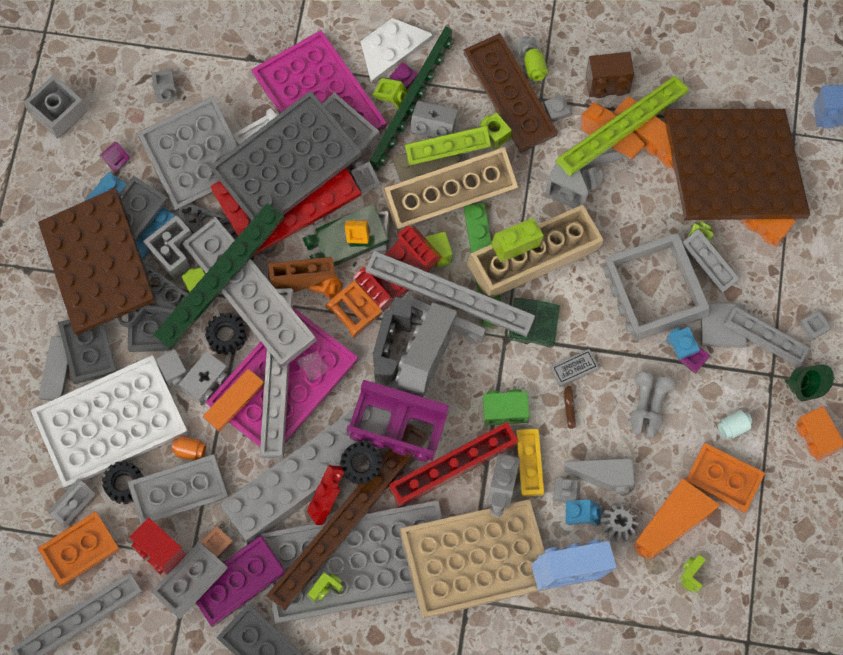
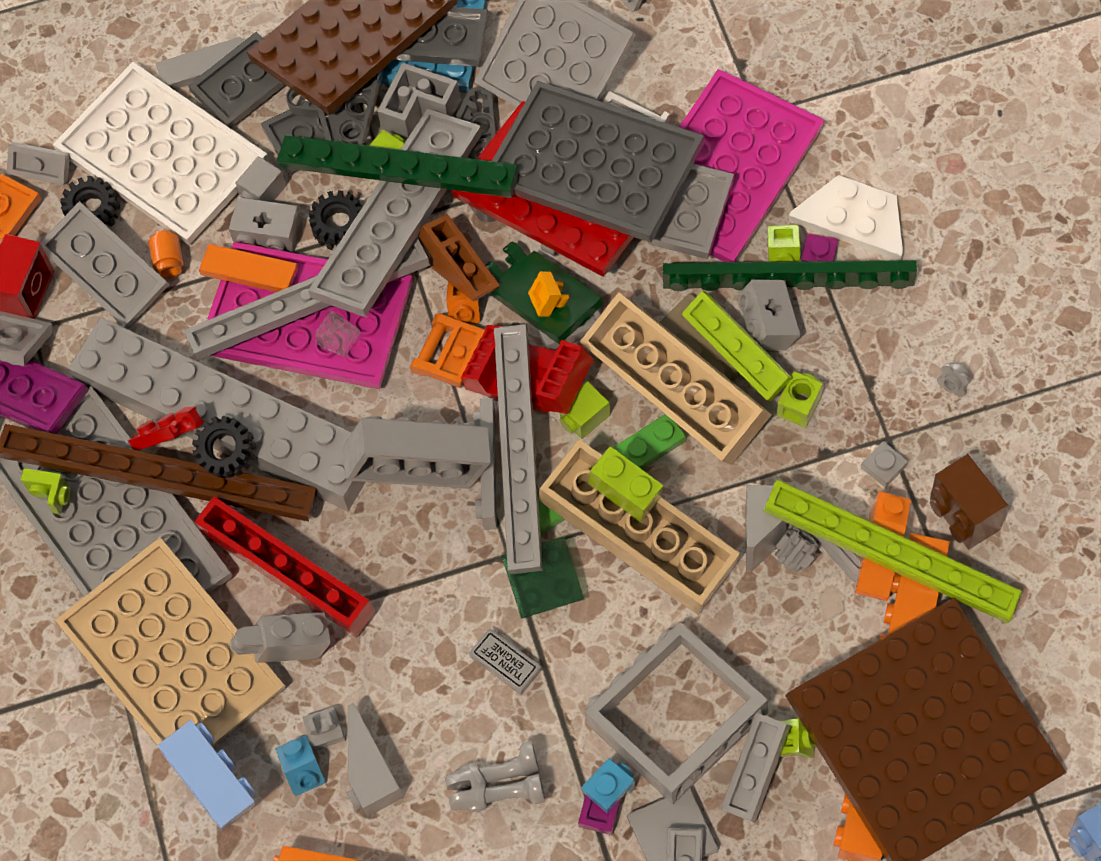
camera: 70 degrees right, 5 degrees down
(217, 542) = (60, 344): nougat plate -> none
(364, 176) = (641, 271): light grey bracket -> none
(398, 318) = (420, 399): dark grey plate -> none
(402, 407) = (321, 464): magenta window -> none
(505, 407) = (400, 597): bright green brick -> none
(510, 92) = (870, 392): reddish brown plate -> none
(530, 462) = (338, 663): yellow plate -> none
(535, 65) = (932, 404): lime brick -> none
(569, 407) = (451, 676): reddish brown piece -> none
(617, 530) = (311, 805): light grey gear -> none

